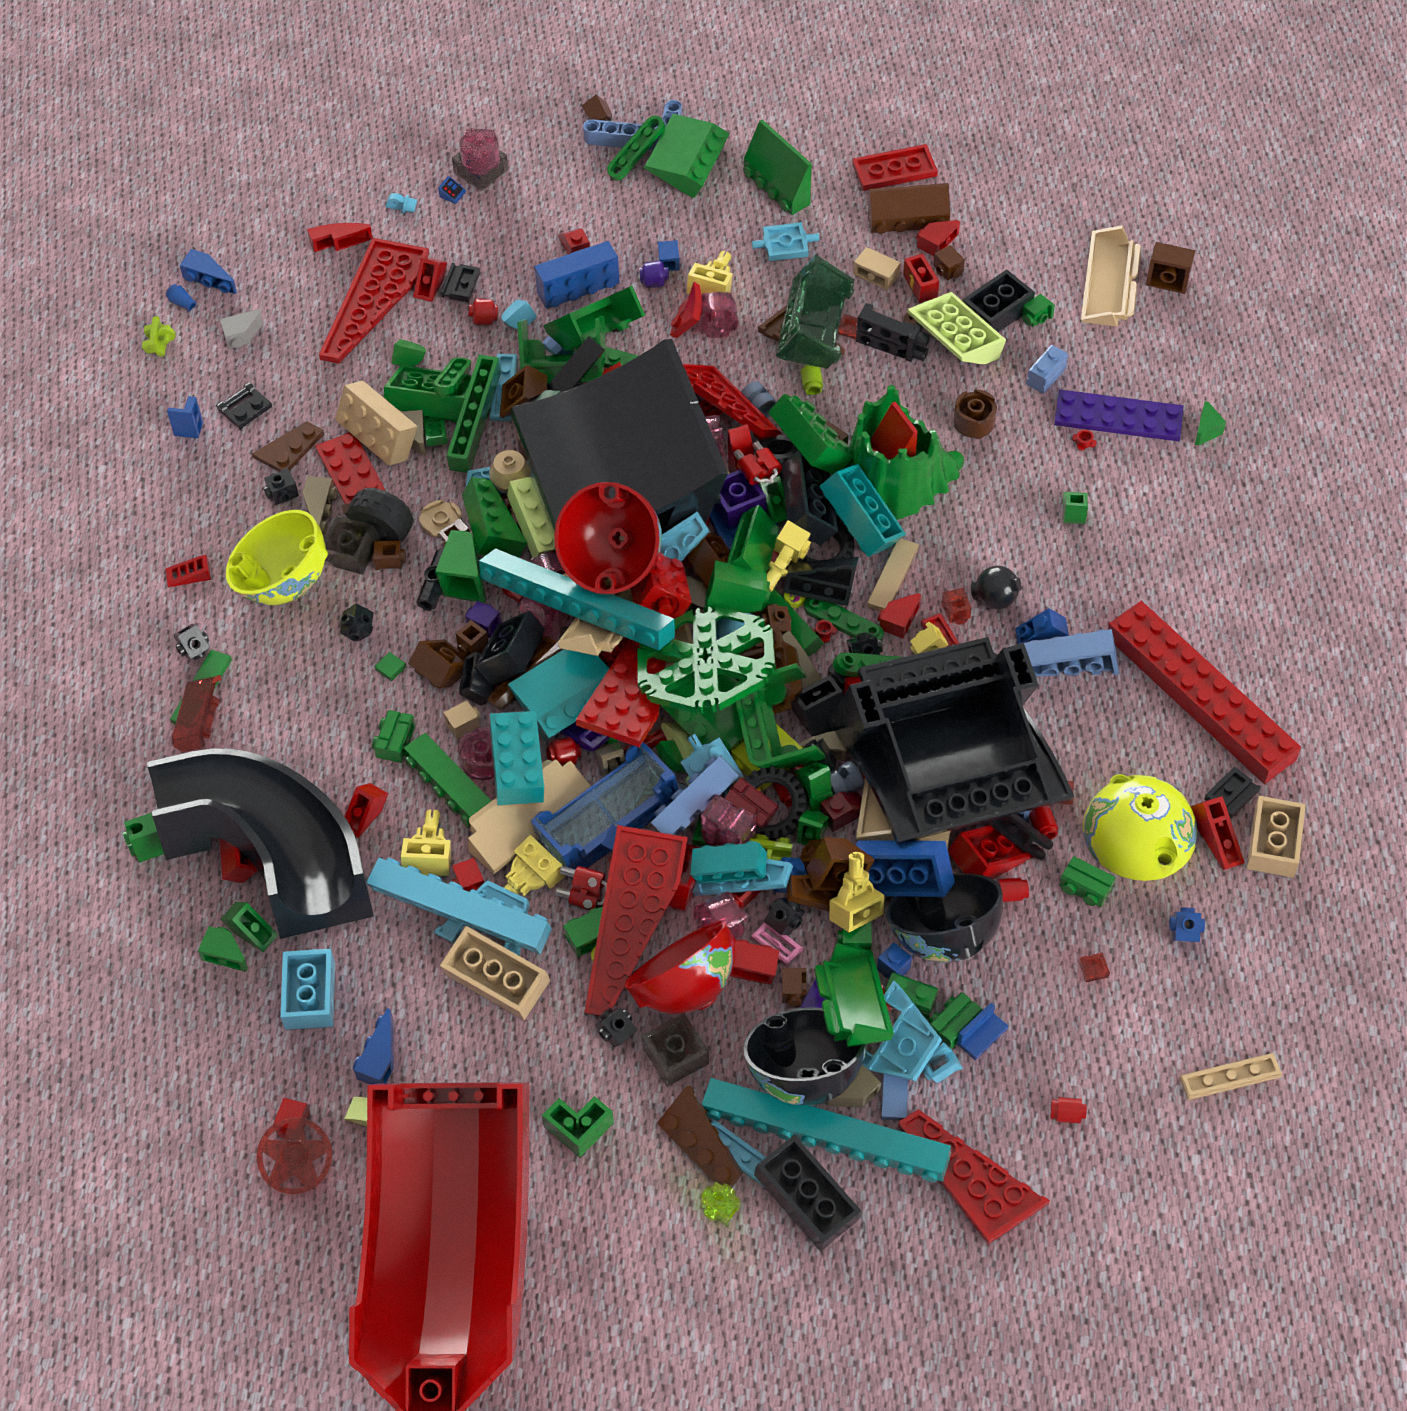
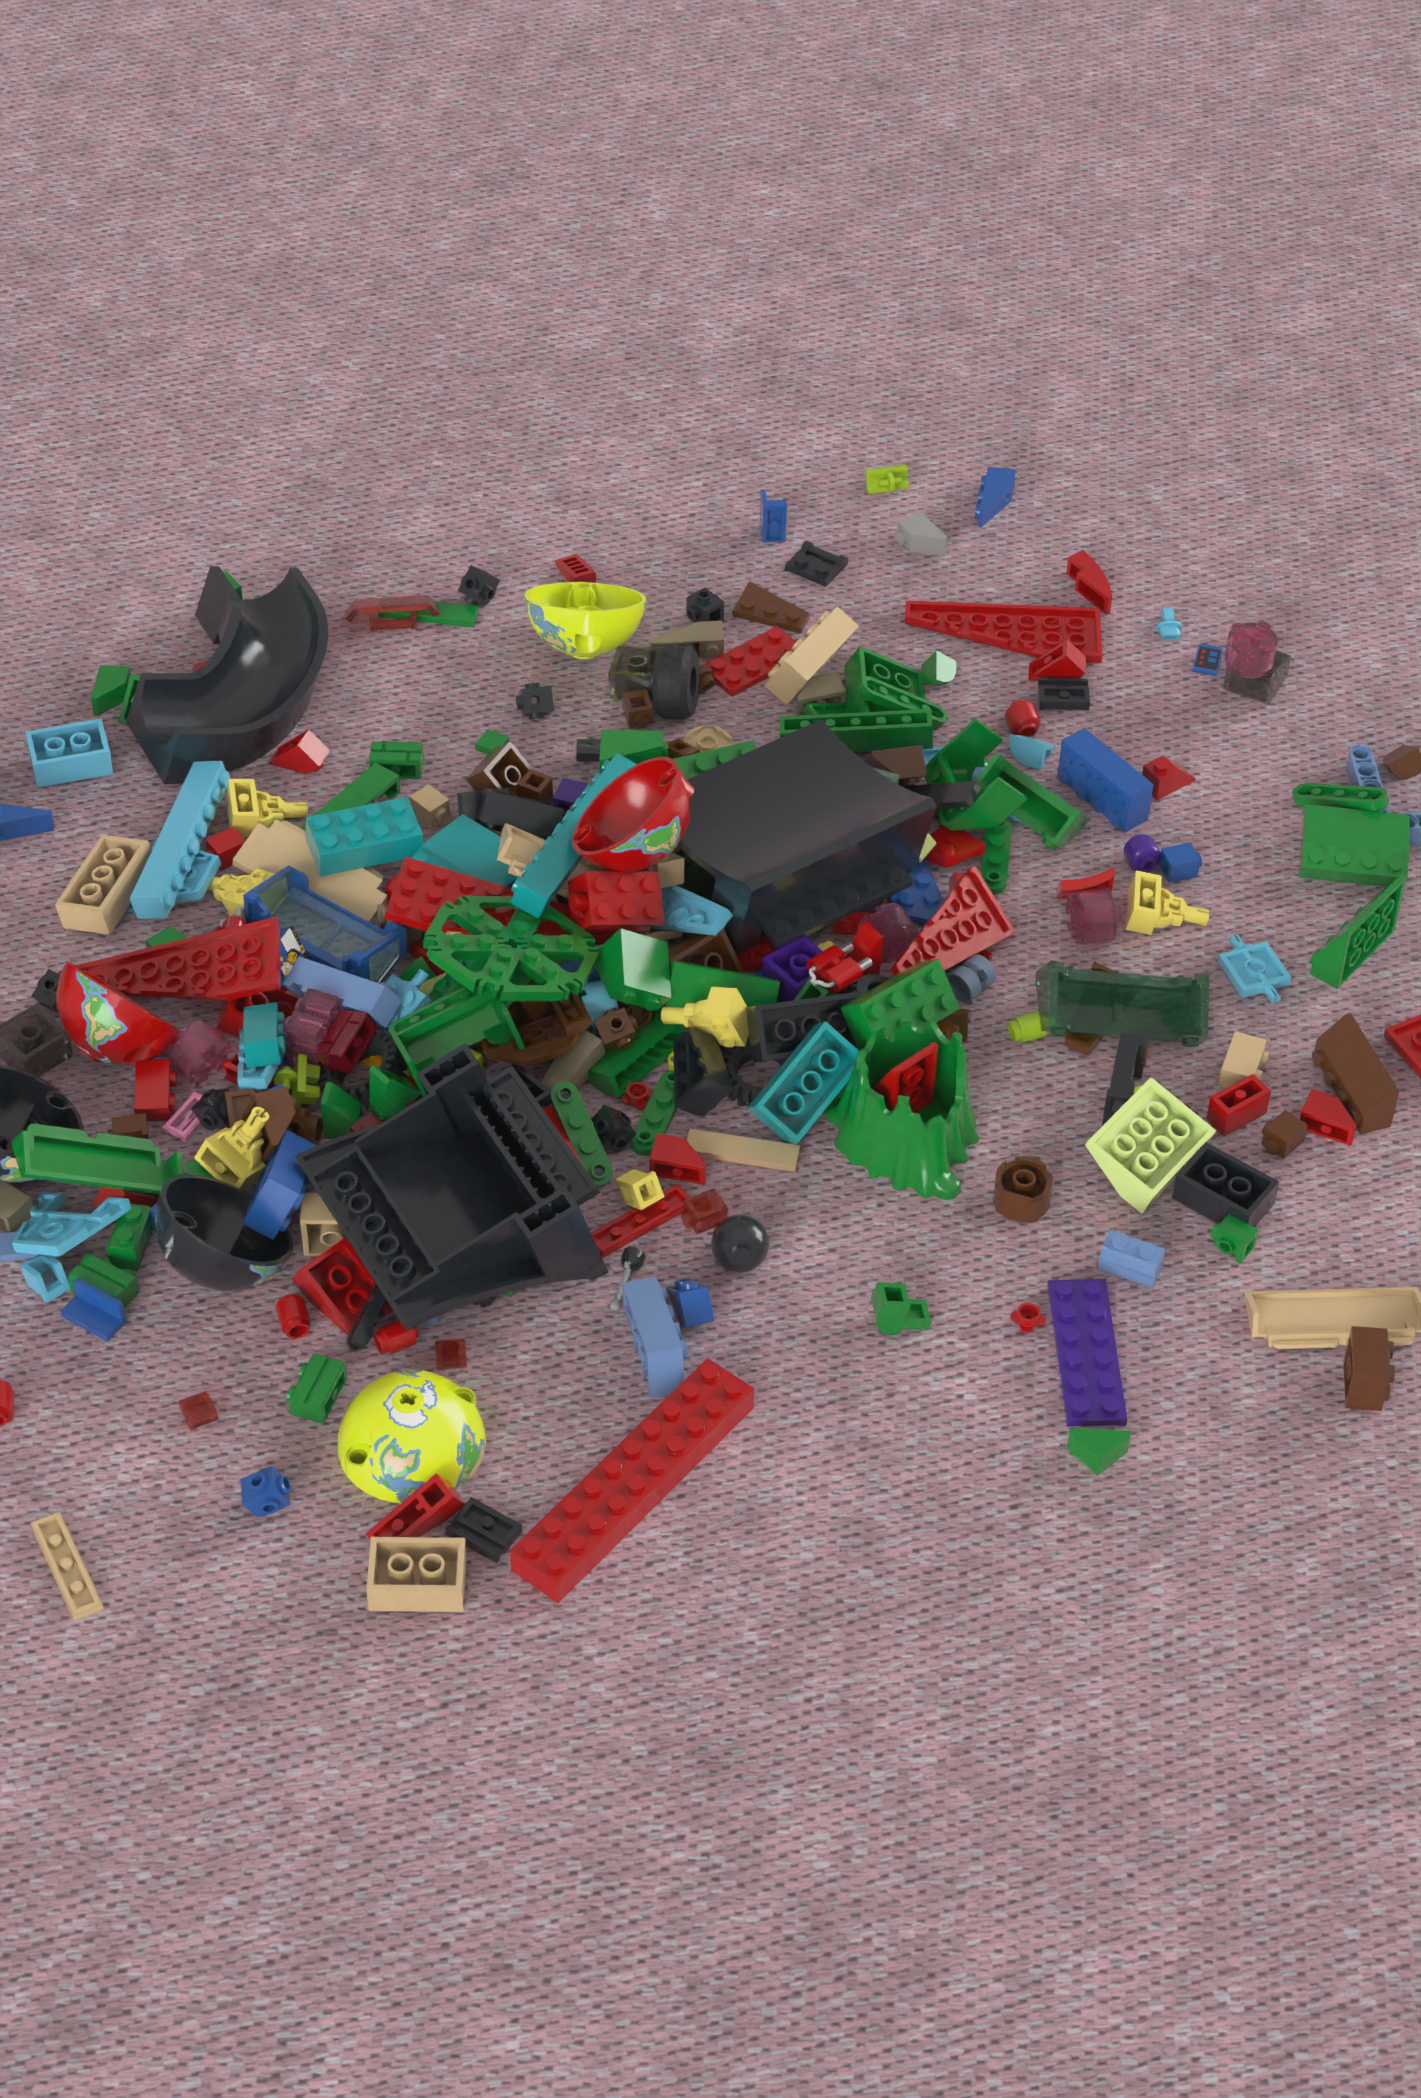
camera: 75 degrees right, 10 degrees down
(177, 295) = (952, 481): blue cone -> none

